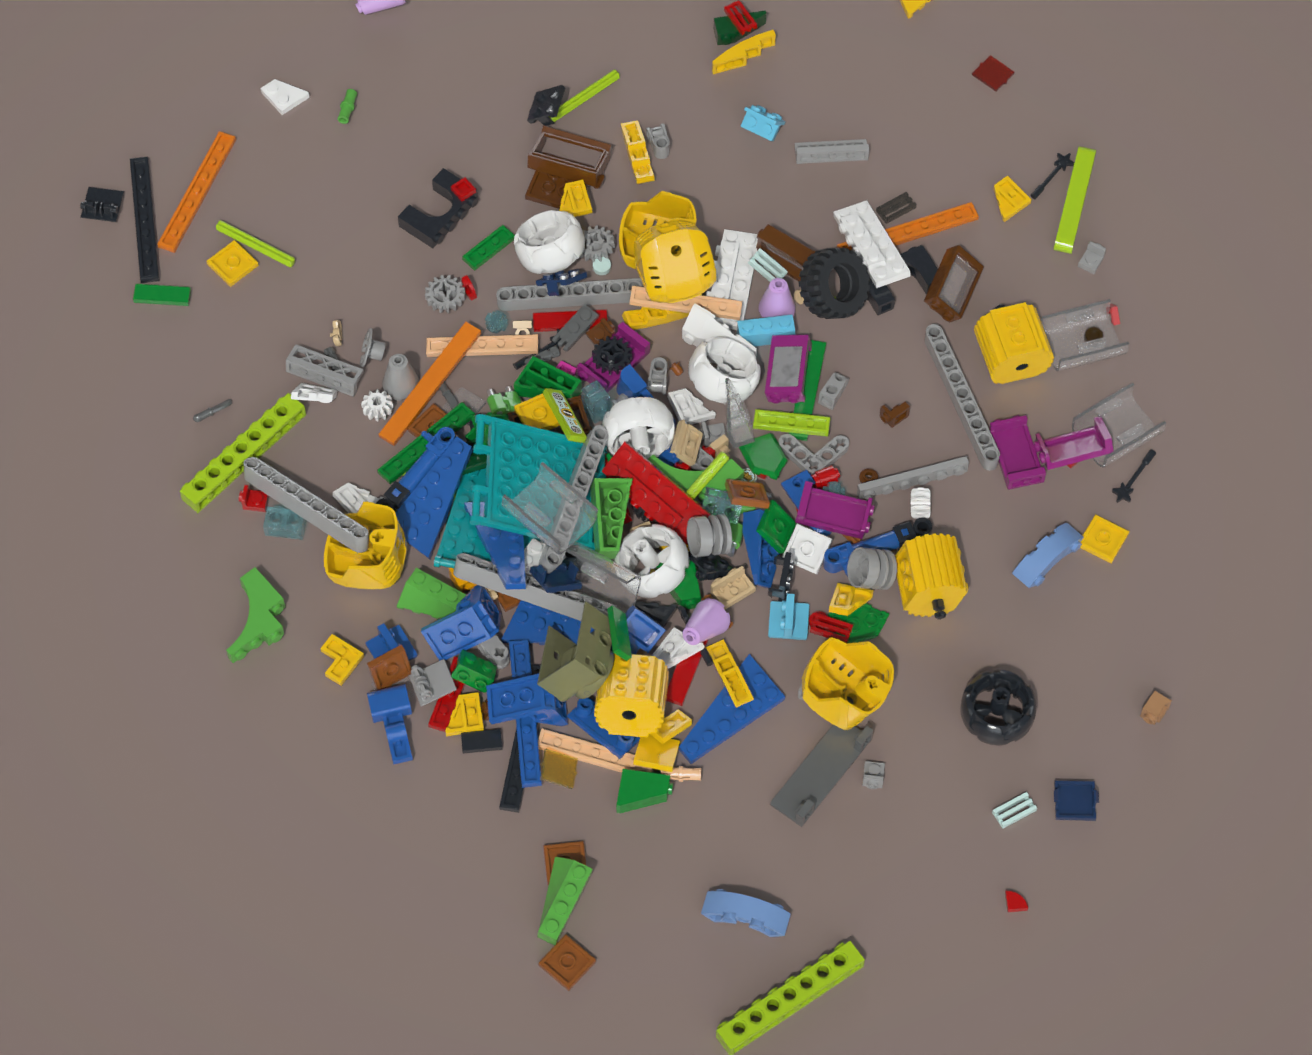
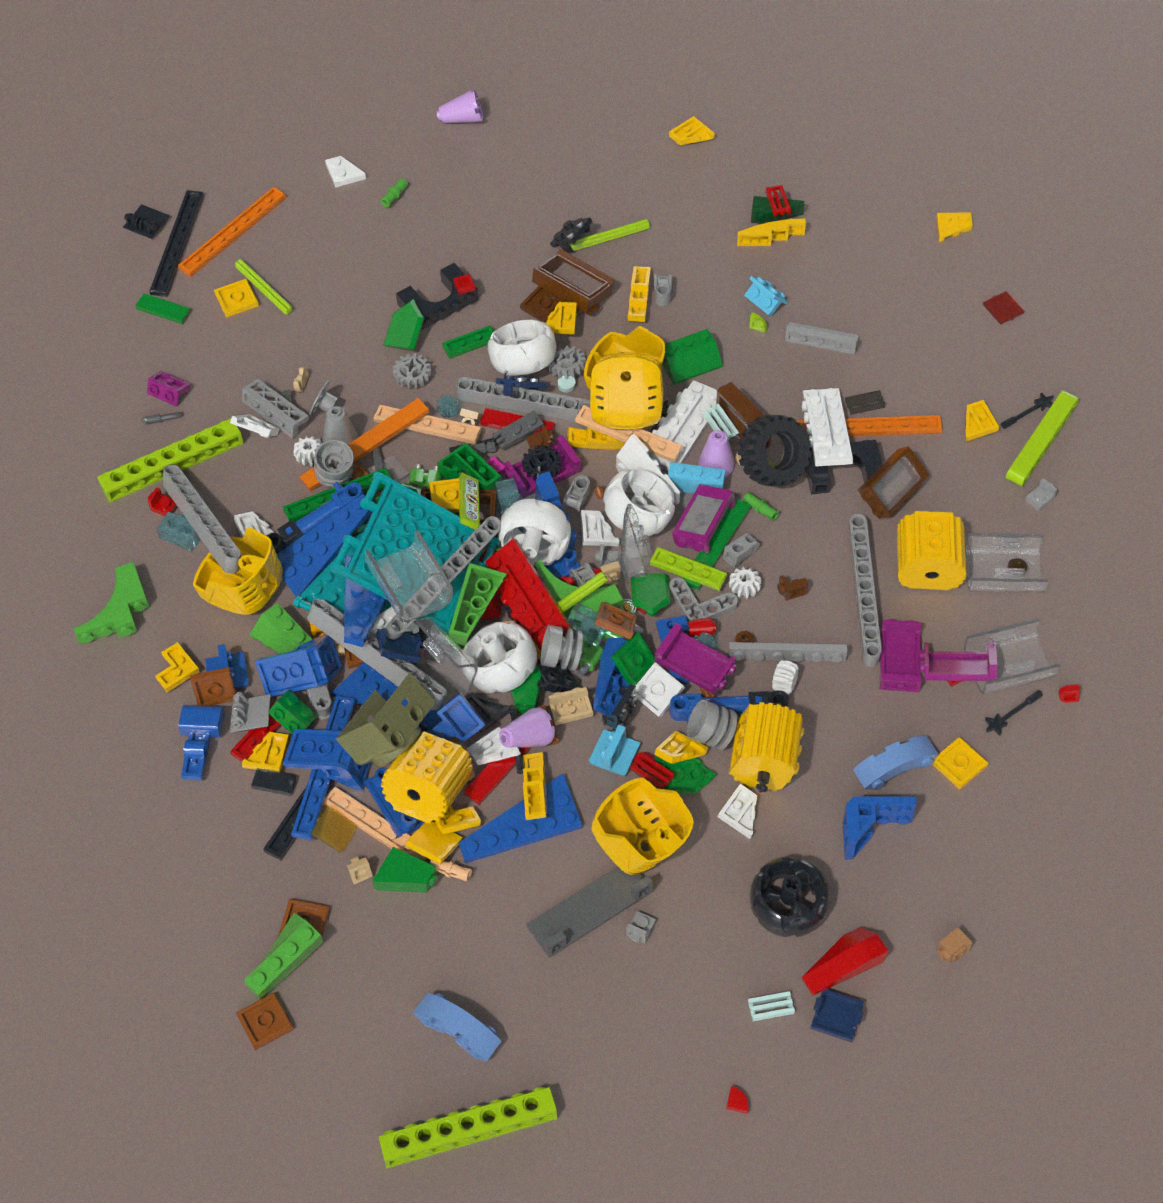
camera: 20 degrees right, 5 degrees down
(205, 378) = (167, 387): none -> magenta bracket
(413, 403) = (337, 455): none -> light grey wheel
(420, 250) = (404, 327): none -> green tile
(469, 289) = (435, 371): red tile -> none
(597, 799) = (359, 870): none -> tan tile
(619, 633) = (433, 713): green tile -> none
(686, 443) = (576, 558): tan plate -> none
(716, 204) = (691, 356): none -> green slope
(765, 152) = (757, 323): none -> lime tile
(836, 341) = (761, 506): none -> bright green pin
(856, 422) = (744, 582): none -> white gear
(923, 641) = (740, 811): none -> white wing
(1039, 610) = (864, 811): none -> blue bracket
(1066, 747) = (845, 959): none -> red wedge
(1113, 311) = (1044, 549): tile -> none
(1180, 445) = (1069, 693): none -> red tile

